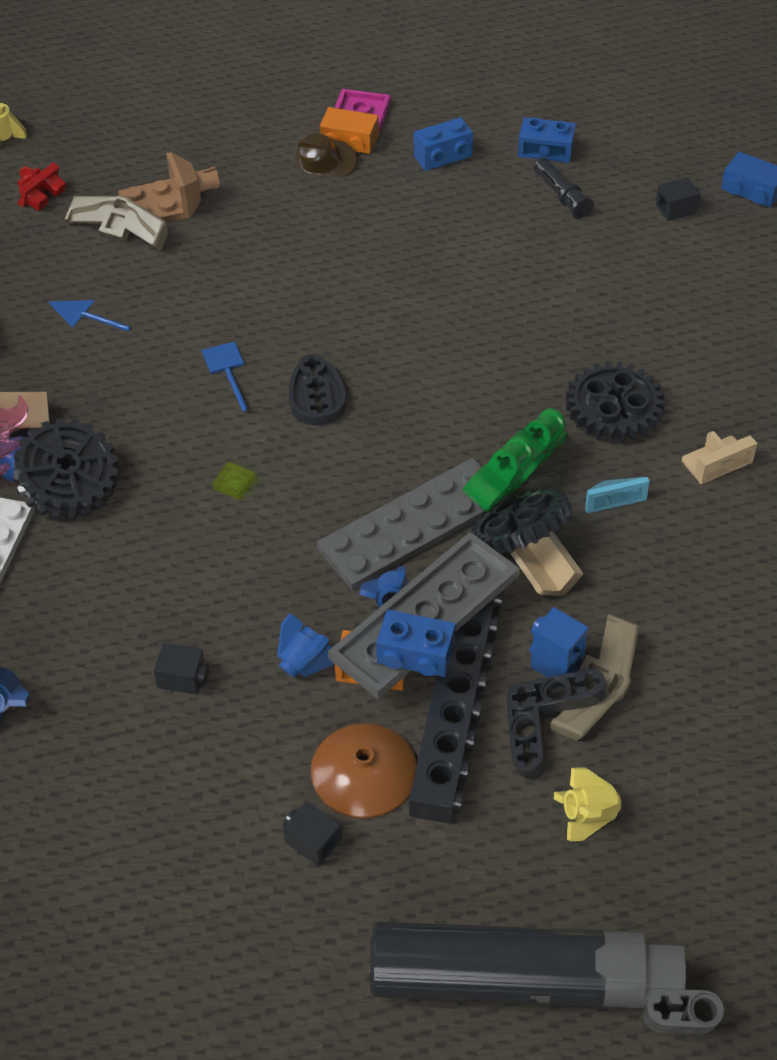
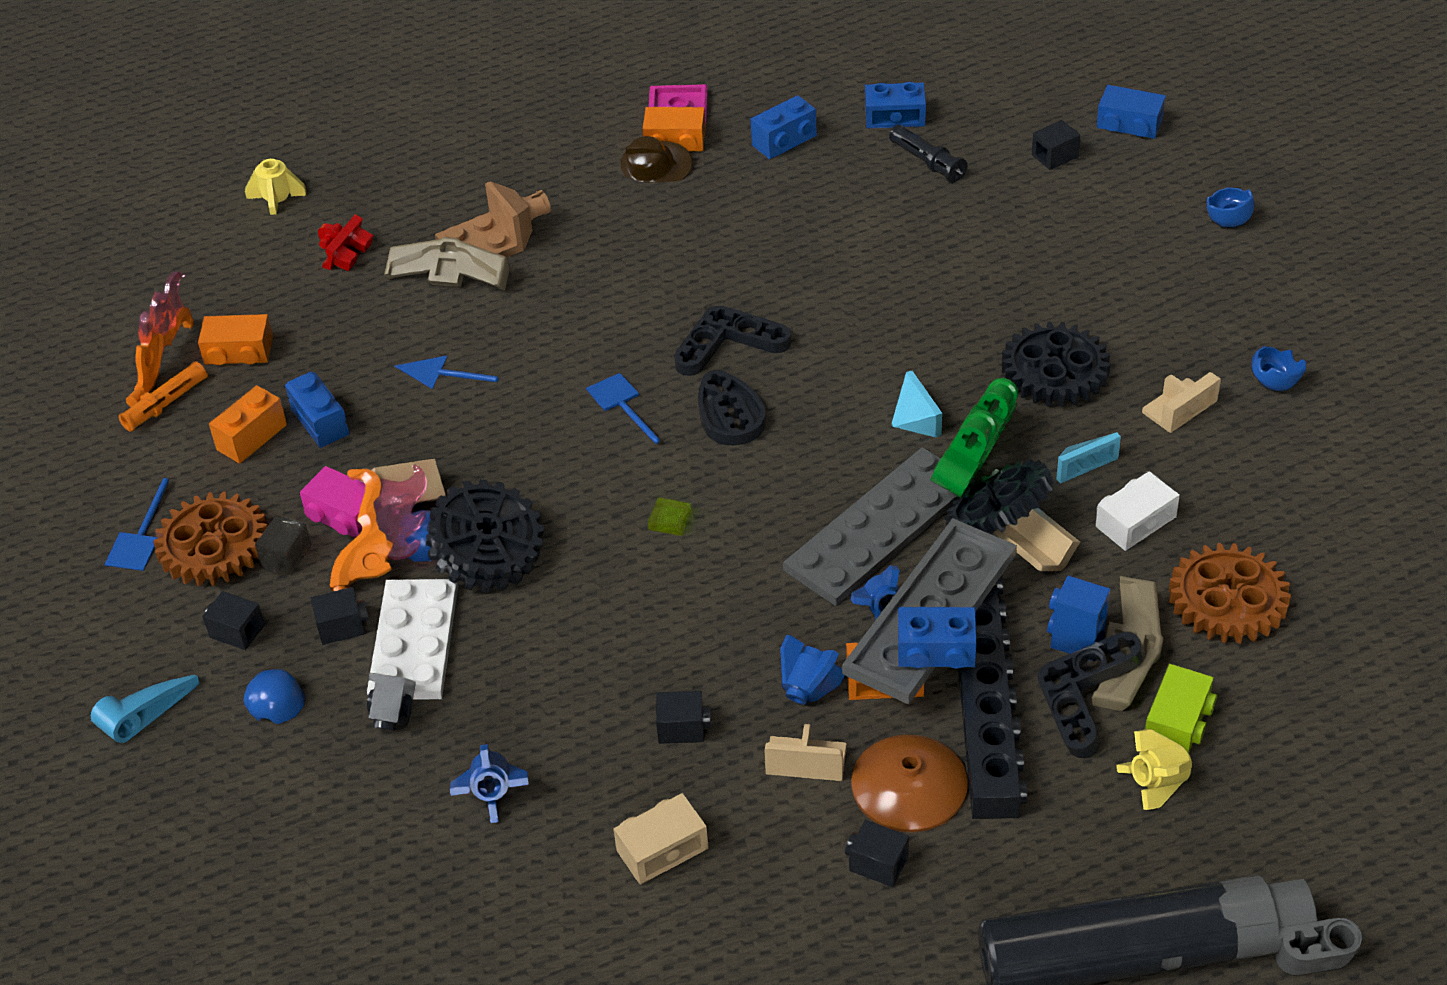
camera: 10 degrees left, 5 degrees down
(124, 779) = (661, 838): none -> tan brick
(278, 727) = (805, 757): none -> tan panel
(332, 318) = (716, 326): none -> black beam
(477, 422) = (917, 409): none -> medium azure slope
(627, 750) = (1181, 706): none -> lime brick
(645, 553) = (1137, 510): none -> white brick
(706, 648) = (1229, 593): none -> dark orange gear

